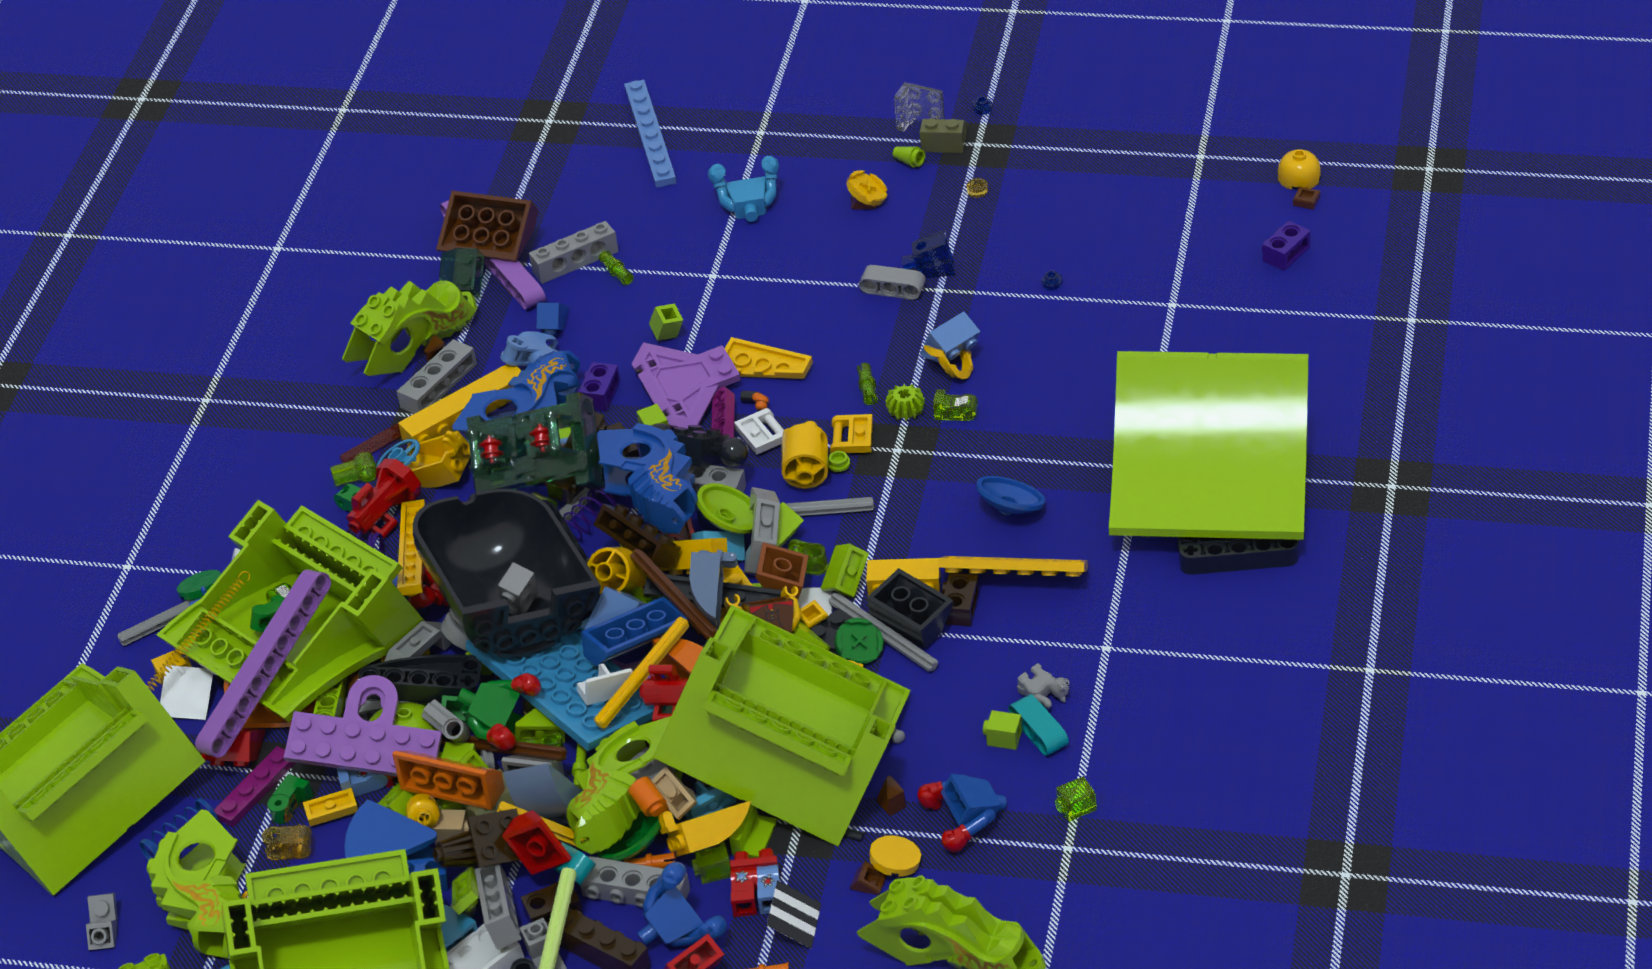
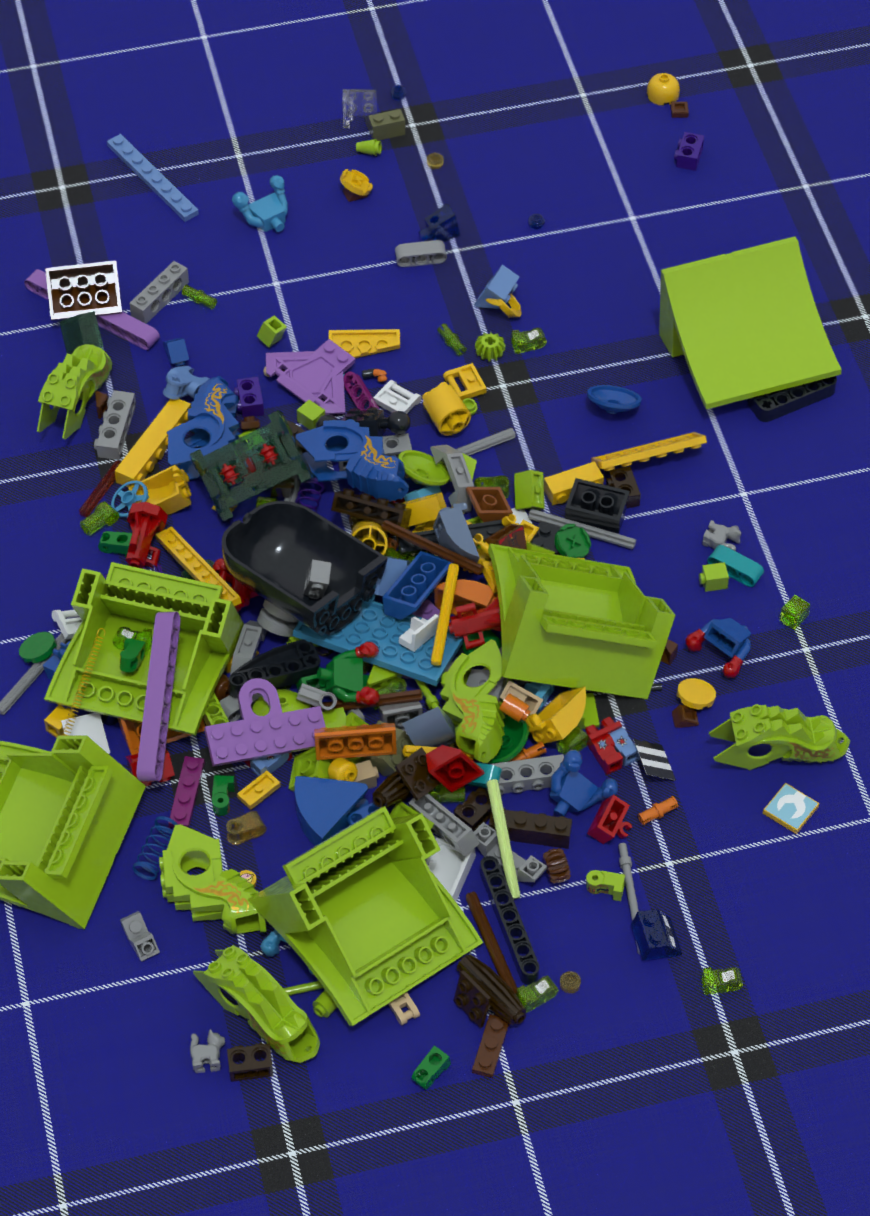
camera: 30 degrees left, 10 degrees up
(520, 876) = (444, 795): none -> clear neon green piece

